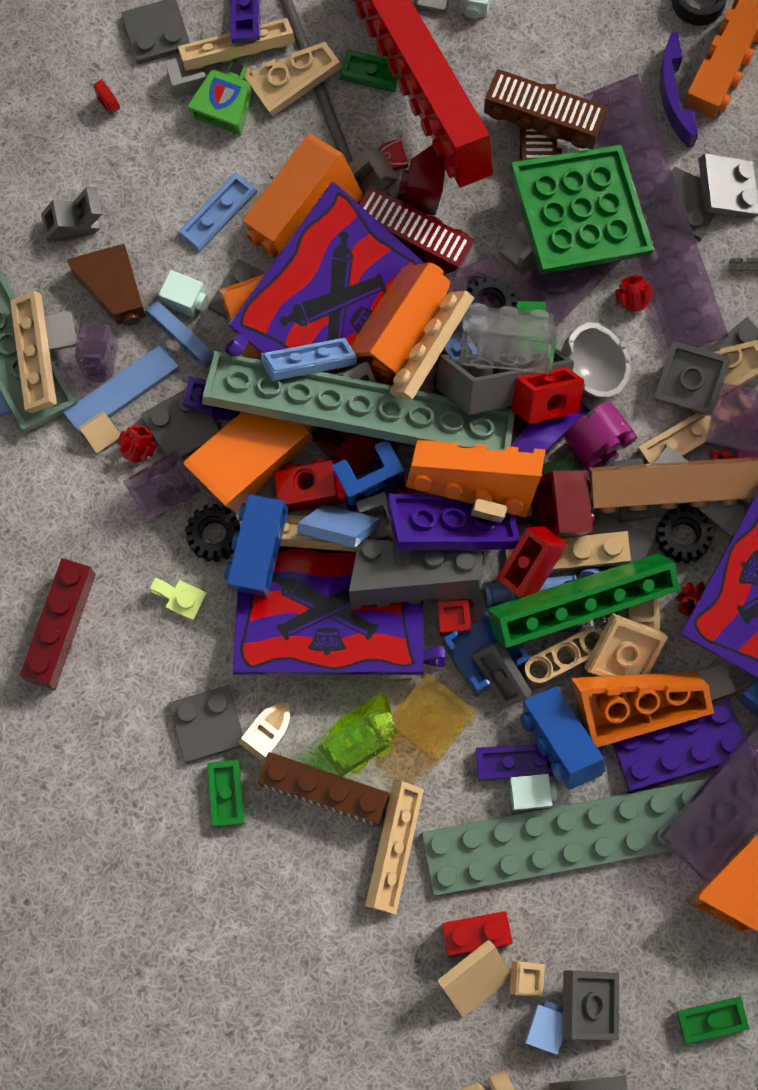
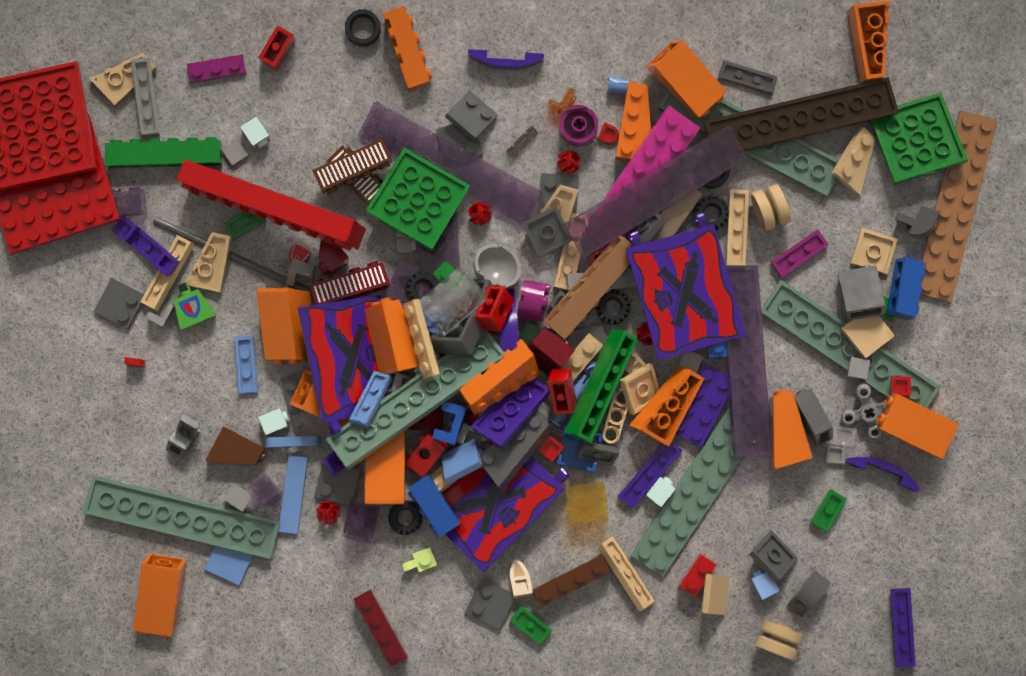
camera: 50 degrees left, 10 degrees up
(33, 352) = (237, 519): tan plate -> none
(99, 431) = (304, 524): tan tile -> none
(360, 736) = (564, 542): clear neon green slope -> none
(488, 510) = (523, 390): tan tile -> none
(527, 979) = (736, 572): tan tile -> none
(562, 738) = (650, 456): blue brick -> none
(681, 120) = (419, 102): dark purple slope -> none

